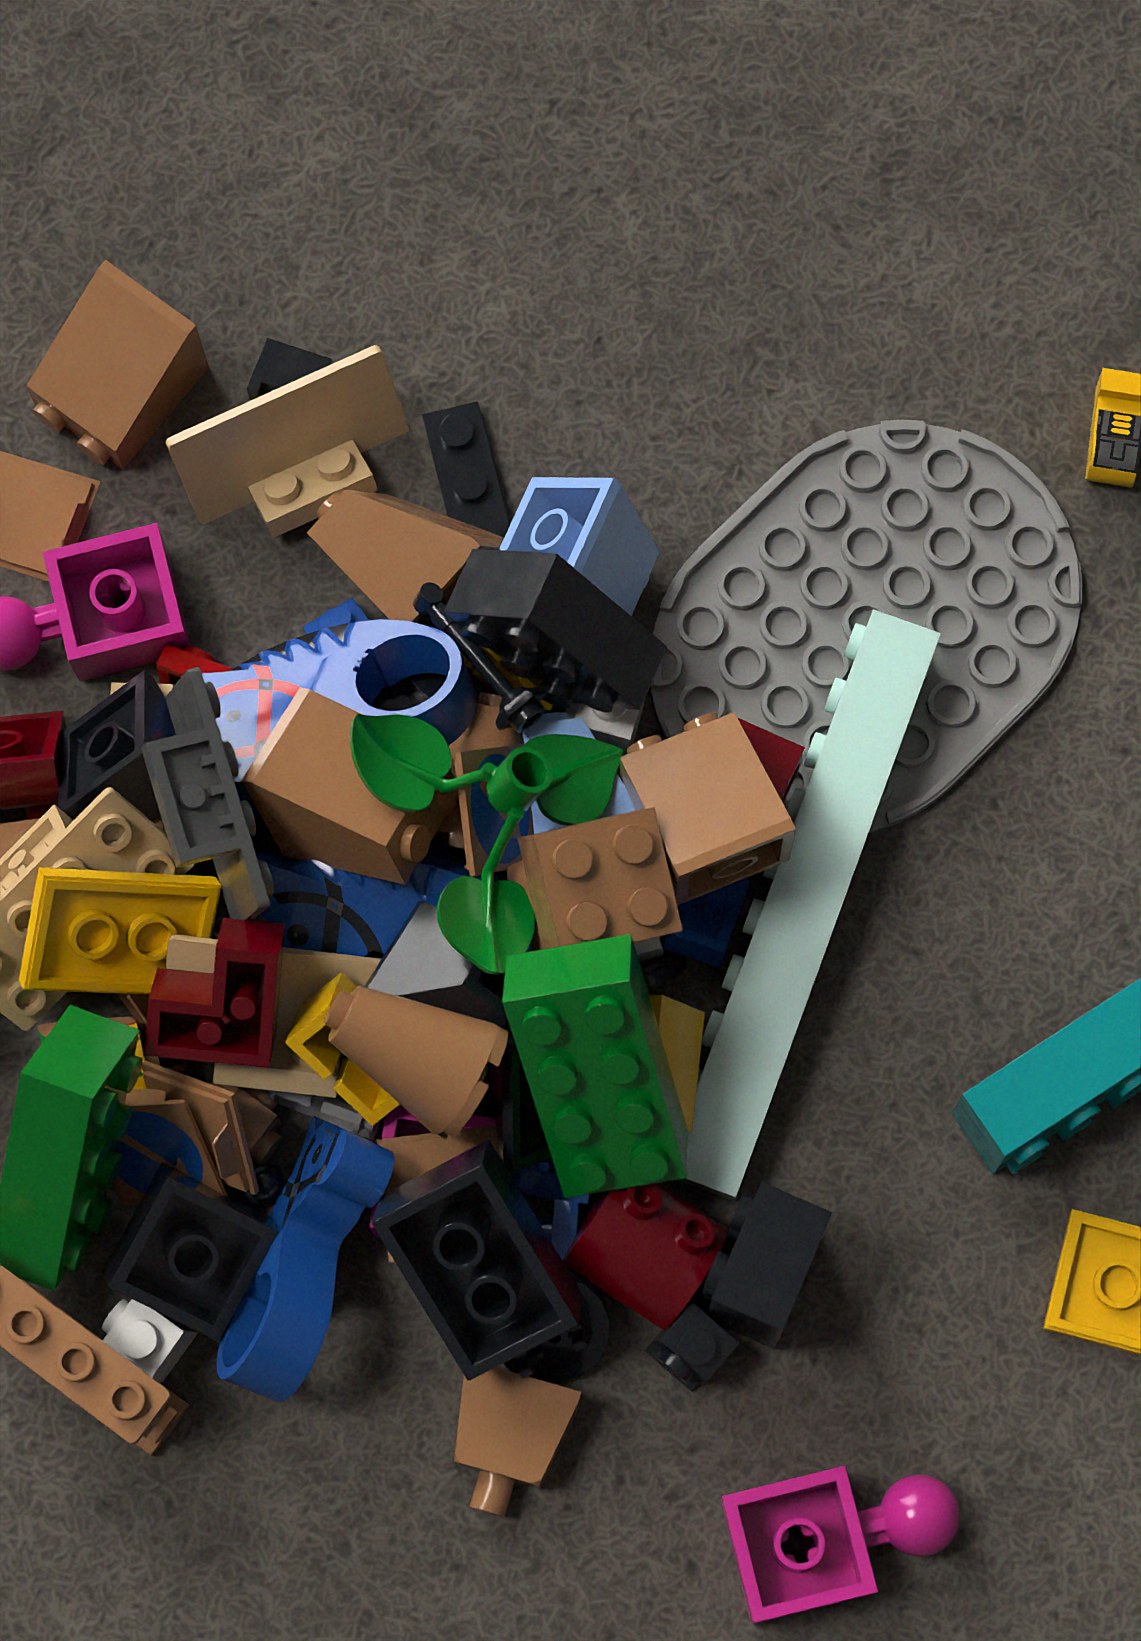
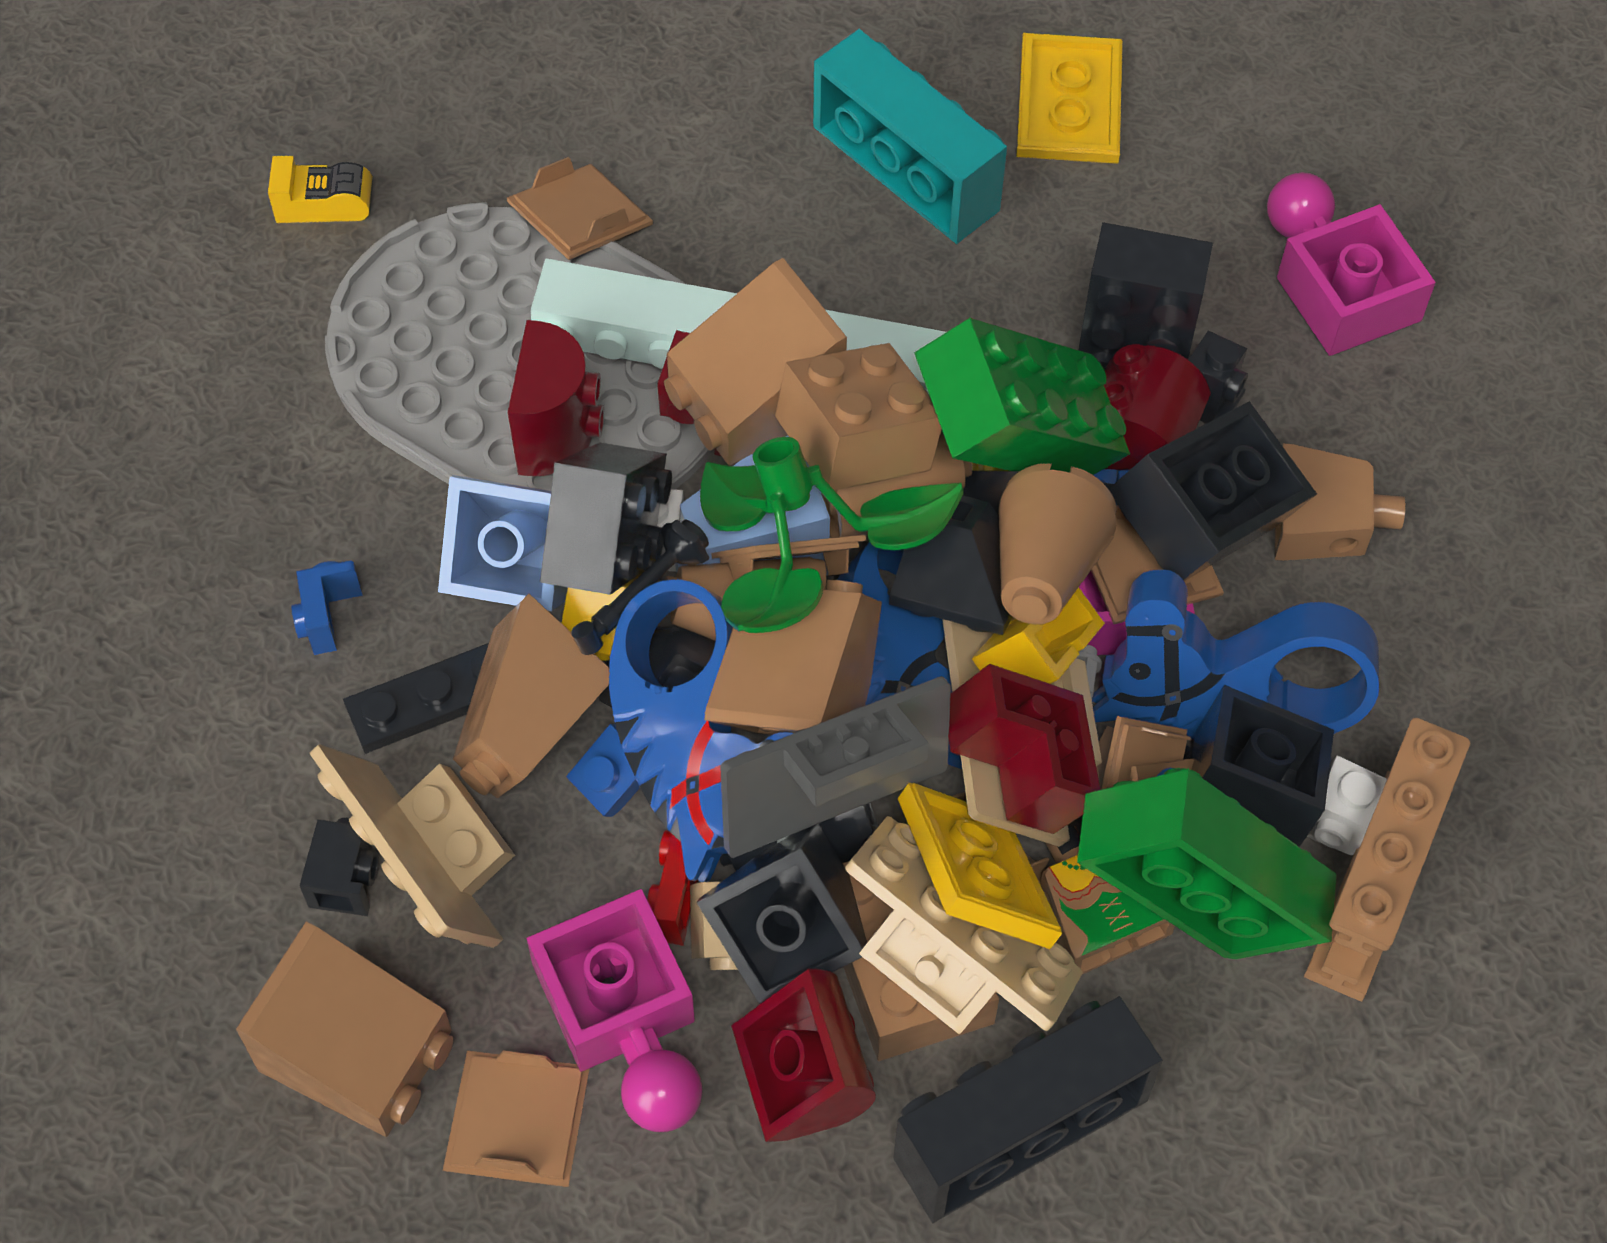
camera: 105 degrees left, 15 degrees down
(578, 381) = (318, 587): none -> blue bracket
(759, 619) = (552, 400): none -> dark red brick
(1054, 701) = (577, 208): none -> medium nougat piece

